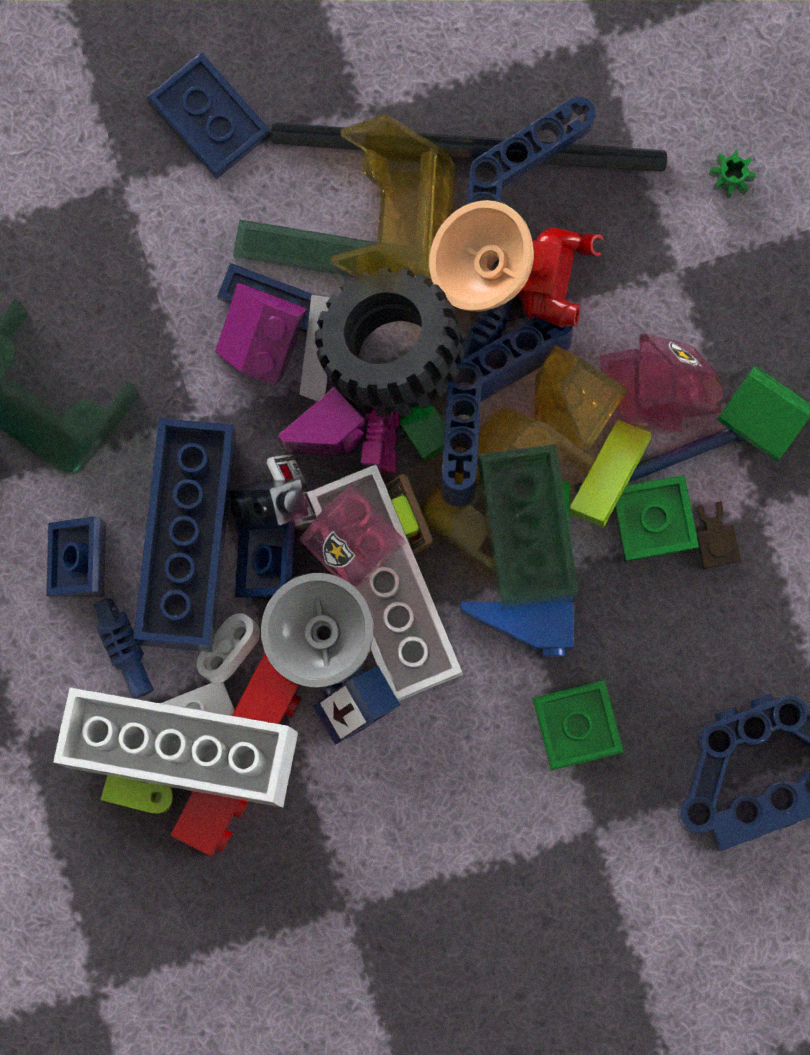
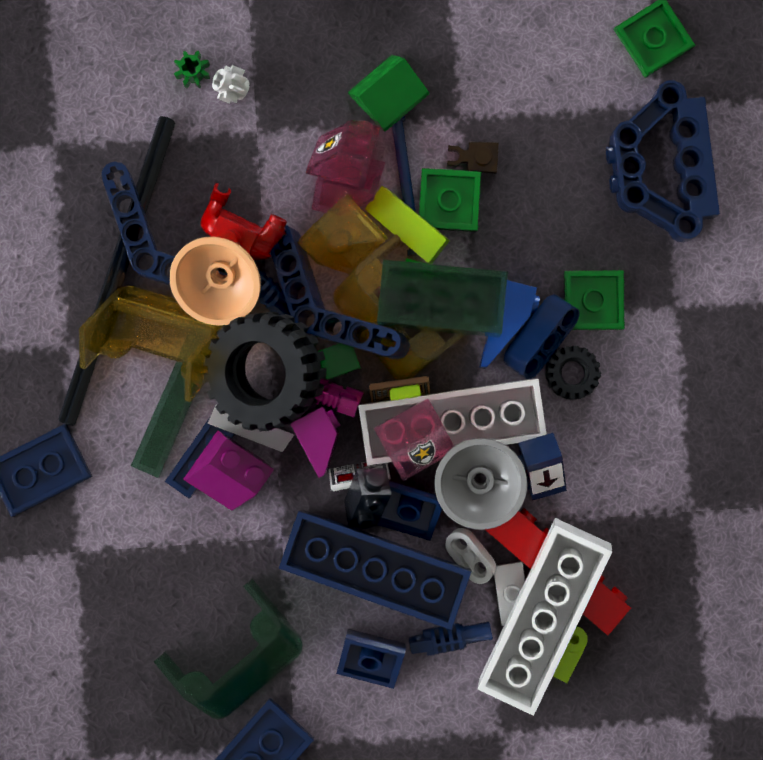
camera: 75 degrees left, 5 degrees up
(498, 703) = (590, 368): none -> black tyre
(515, 668) = (541, 336): none -> dark blue beam
(726, 223) = (230, 84): none -> white gear

